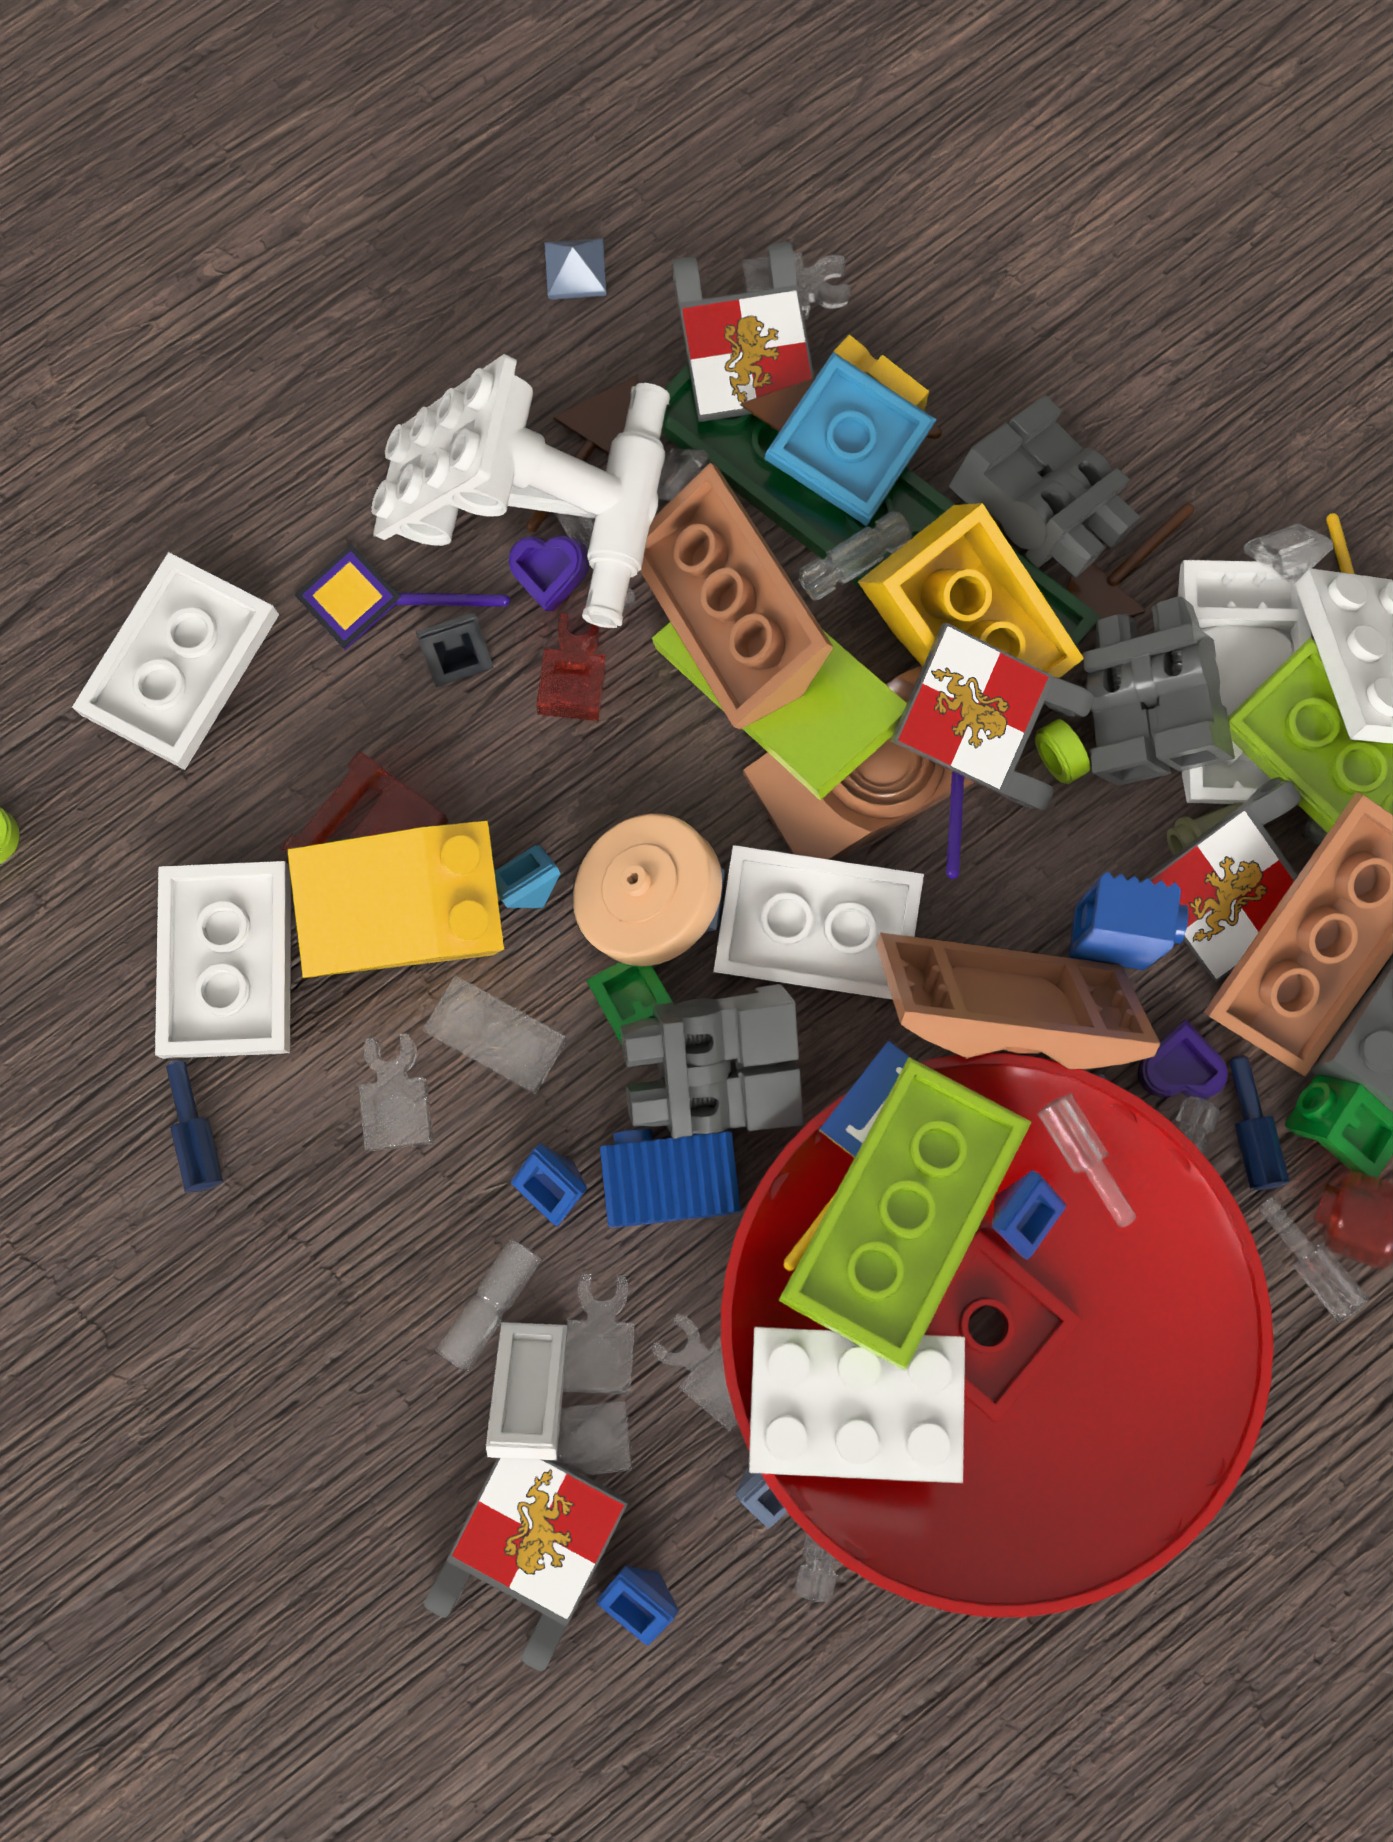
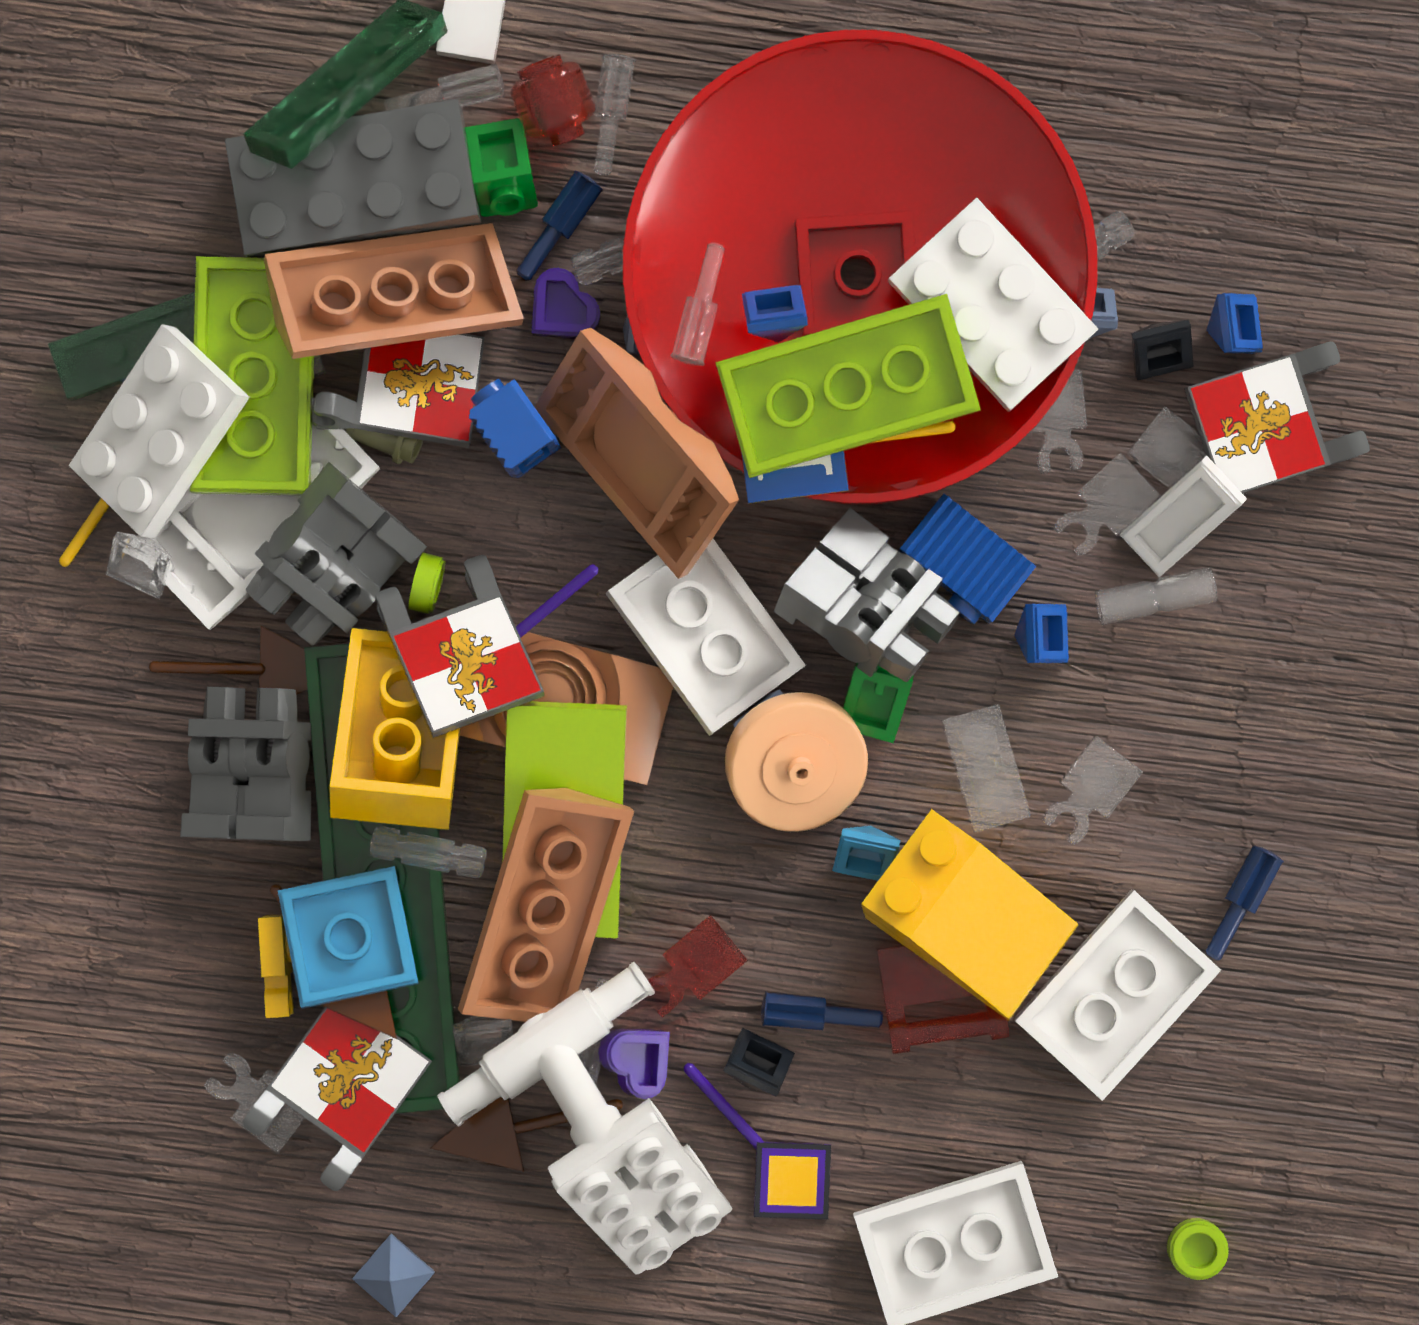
camera: 135 degrees left, 10 degrees up
(450, 724) = (812, 1013): none -> dark blue axle
(680, 1517) = (1162, 349): none -> black slope

